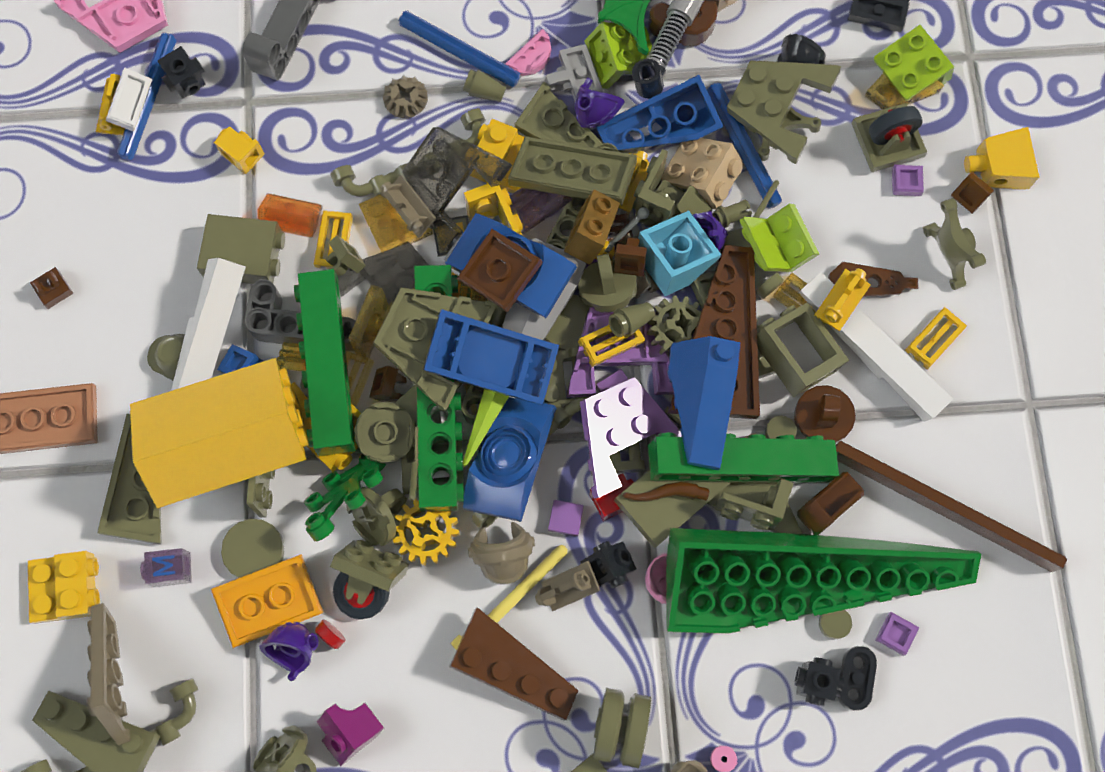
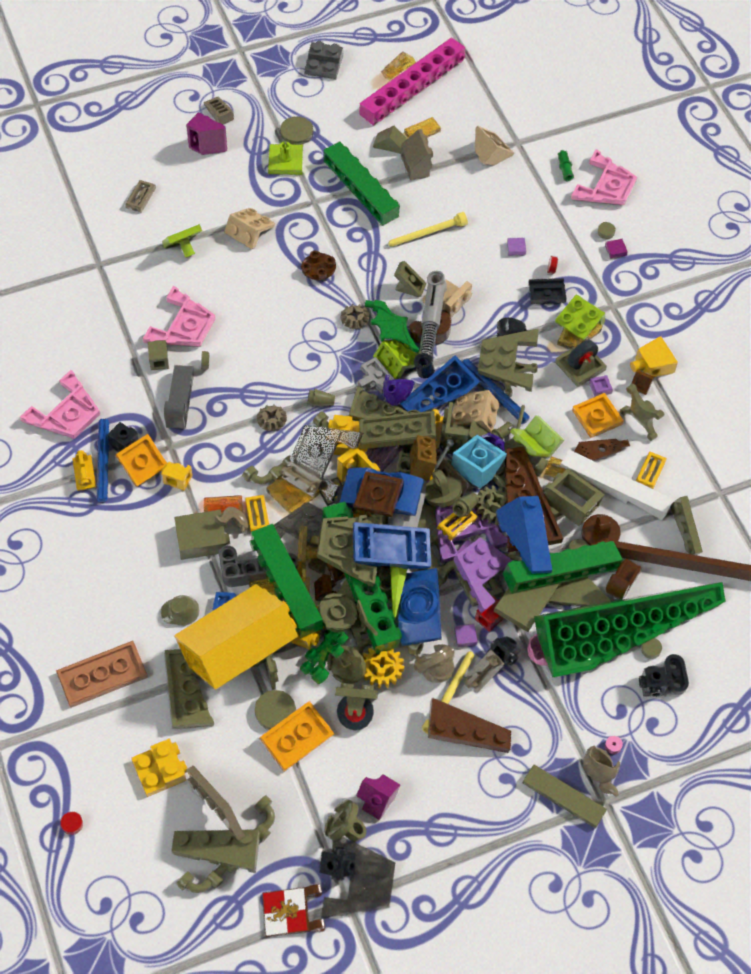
camera: 20 degrees left, 15 degrees down
(51, 288) = (82, 591): reddish brown tile -> none
(129, 99) = (95, 463): white tile -> none
(166, 567) = (224, 735): clear purple brick -> none
(195, 112) = (141, 460): none -> light orange tile
(209, 324) = (201, 581): white slope -> none
(293, 647) = (323, 757): dark purple helmet -> none
(295, 232) = (235, 515): none -> dark tan piece
(330, 634) = (344, 743): red tile -> none
(344, 257) = (271, 517): olive tile -> none
(459, 48) = (295, 380): blue axle -> none
(533, 55) = (343, 374): bright pink tile -> none
(617, 726) = (547, 739): olive wheel -> none
(630, 258) = (453, 470): reddish brown tile -> none
(682, 489) = (529, 593): reddish brown animal -> none
(760, 516) = (580, 593): olive bracket -> none
(843, 298) = (588, 459): yellow hinge -> none
(886, 226) = (597, 415): none -> light orange tile
(897, 633) = (690, 643): medium lavender tile -> none
(959, 436) = (686, 524): none -> olive wing

